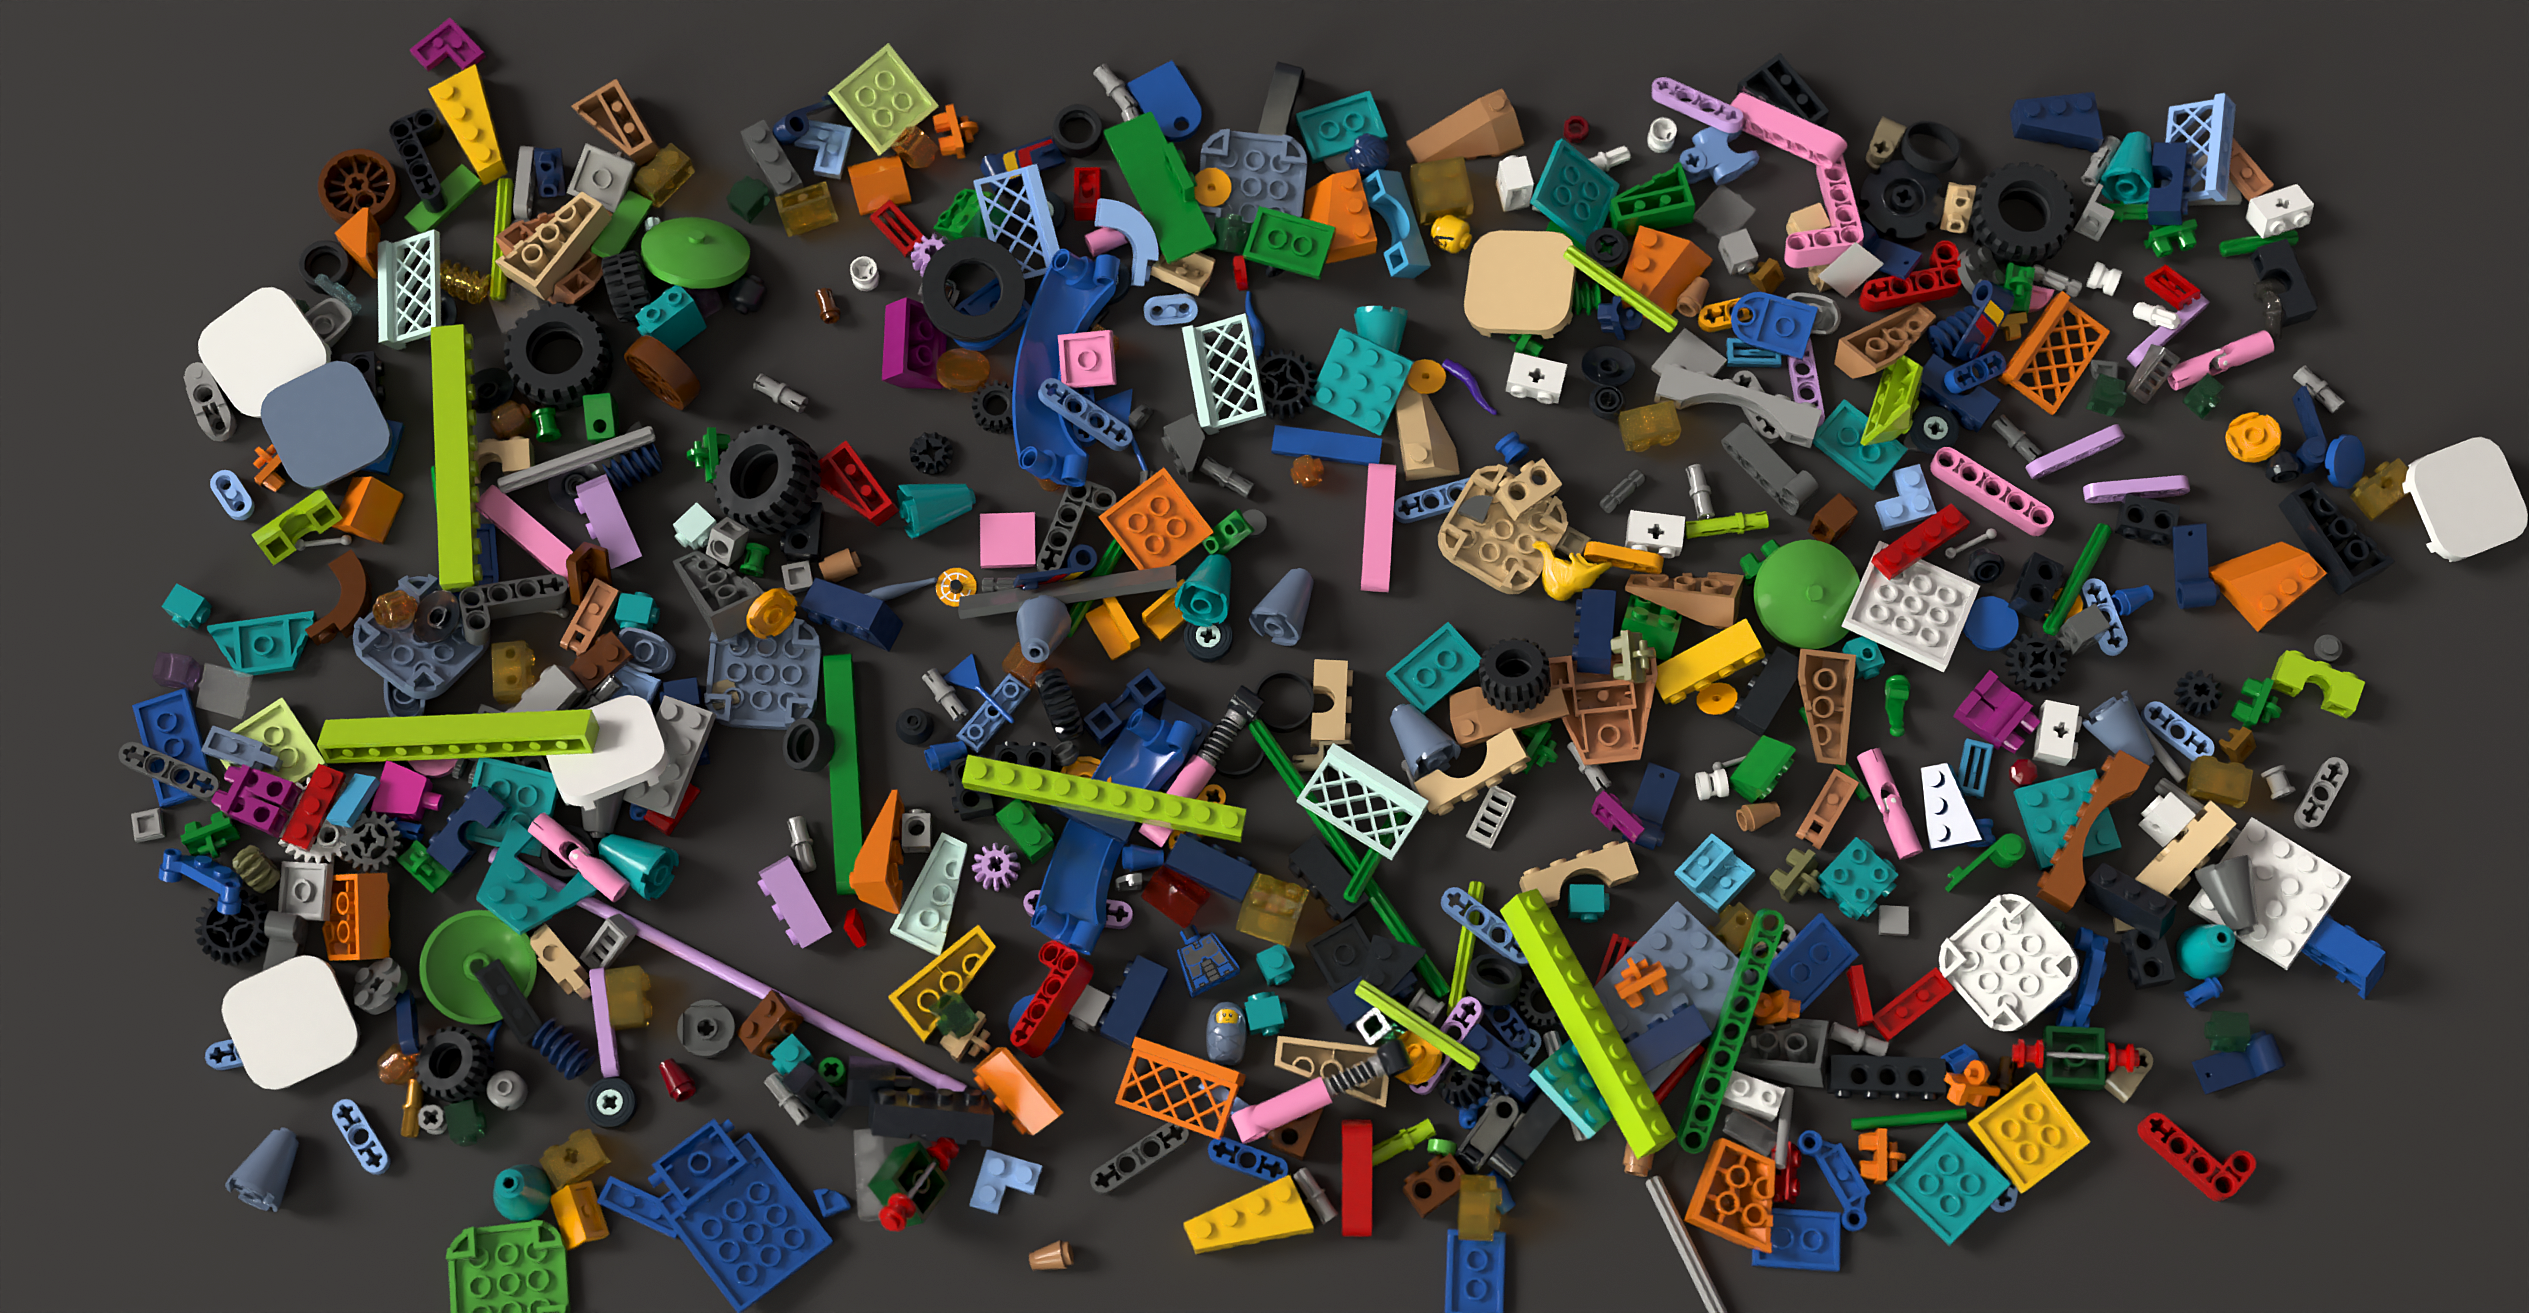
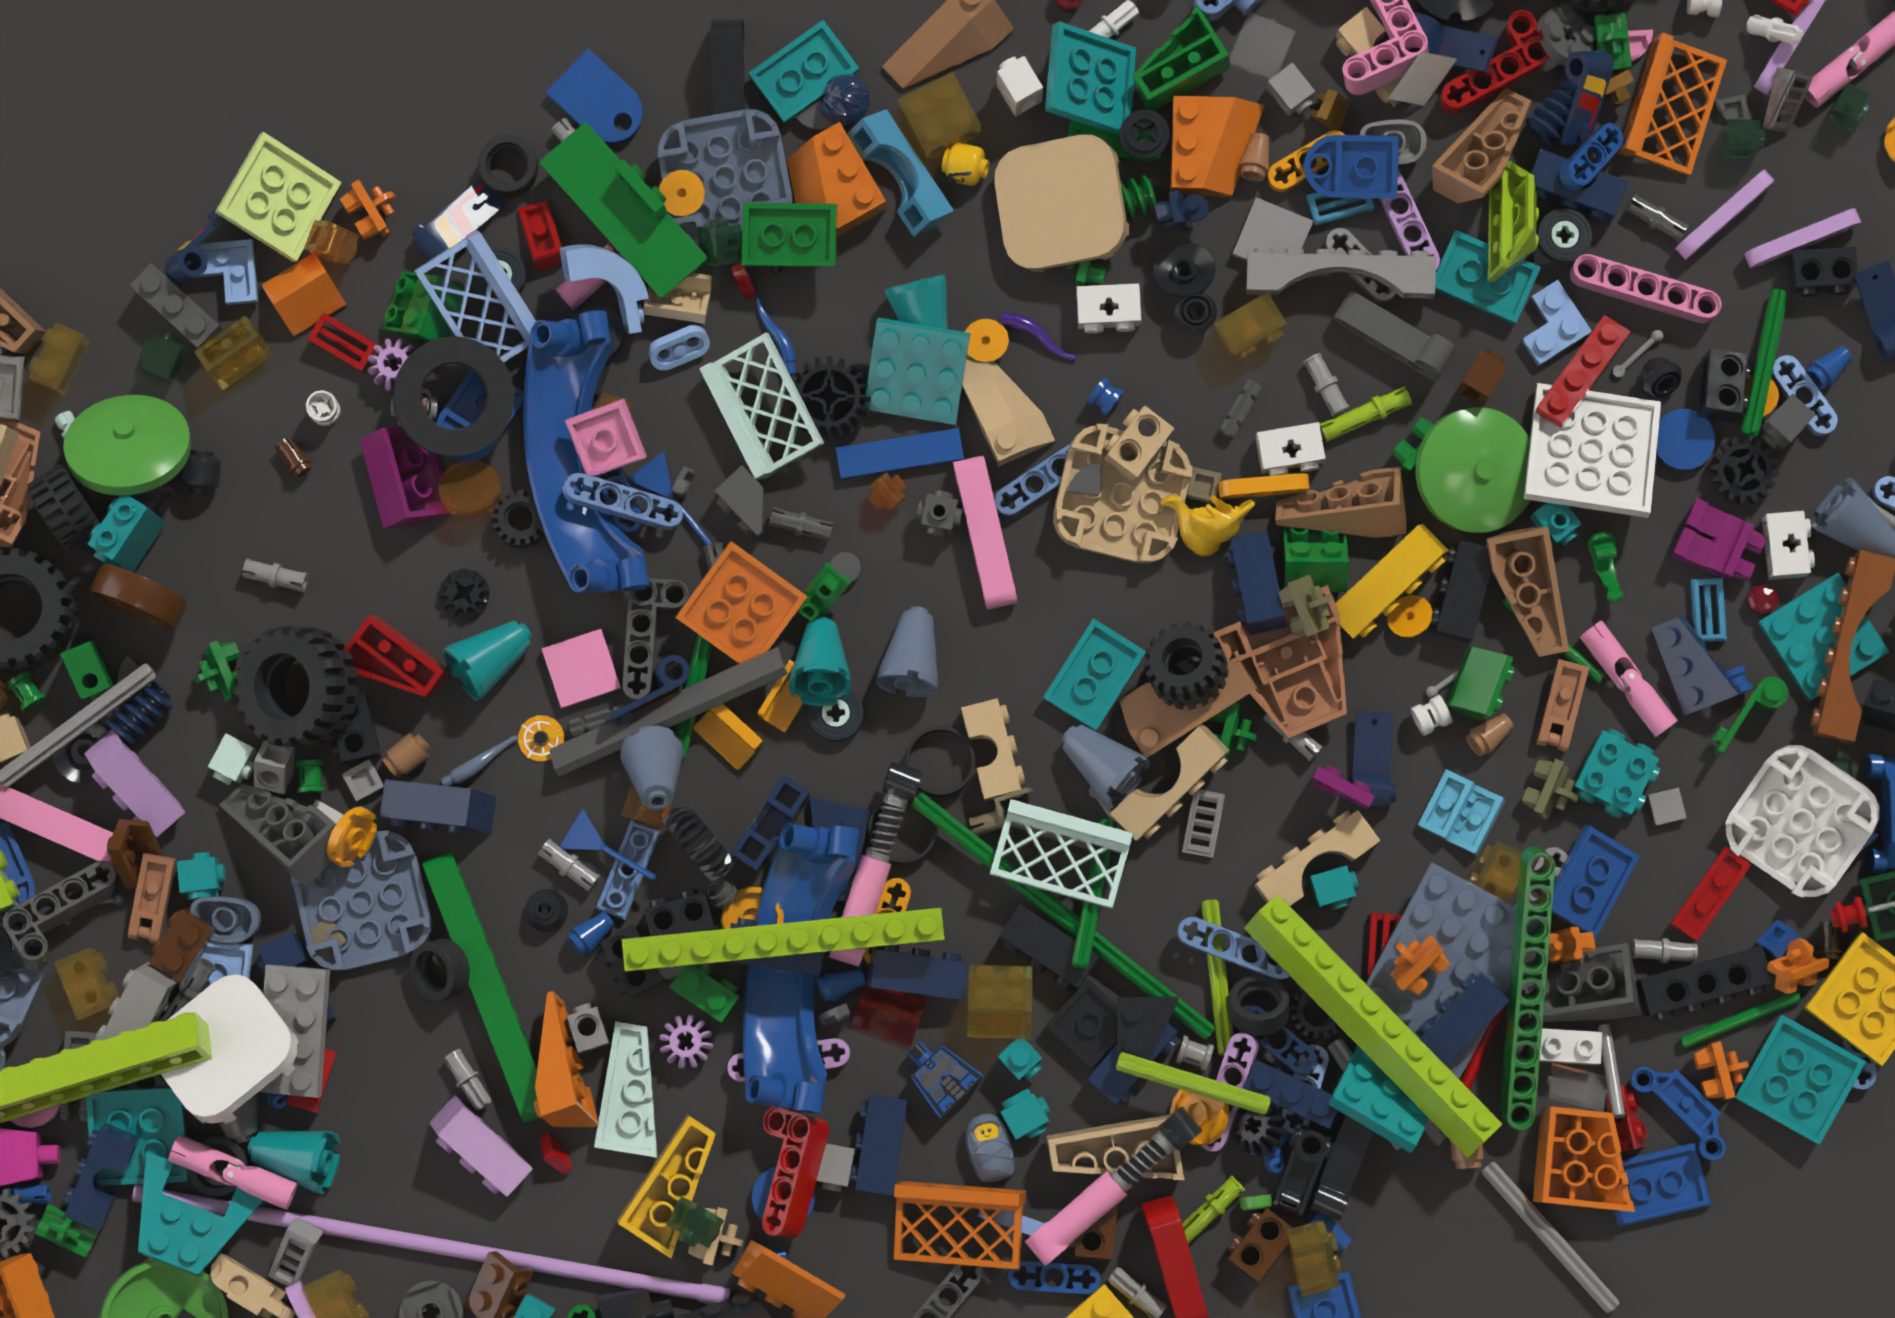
camera: 15 degrees left, 10 degrees up
(622, 225) = (33, 436): bright green tile -> none
(1114, 87) = (534, 101): light grey pin -> none
(1345, 508) = (935, 525): none -> dark grey brick
(1378, 1028) = (1152, 1098): clear green brick -> none
(1620, 288) = (1174, 180): lime axle -> none
(1860, 995) = (1653, 902): red tile -> none
(2057, 281) = (1652, 17): light grey axle -> none

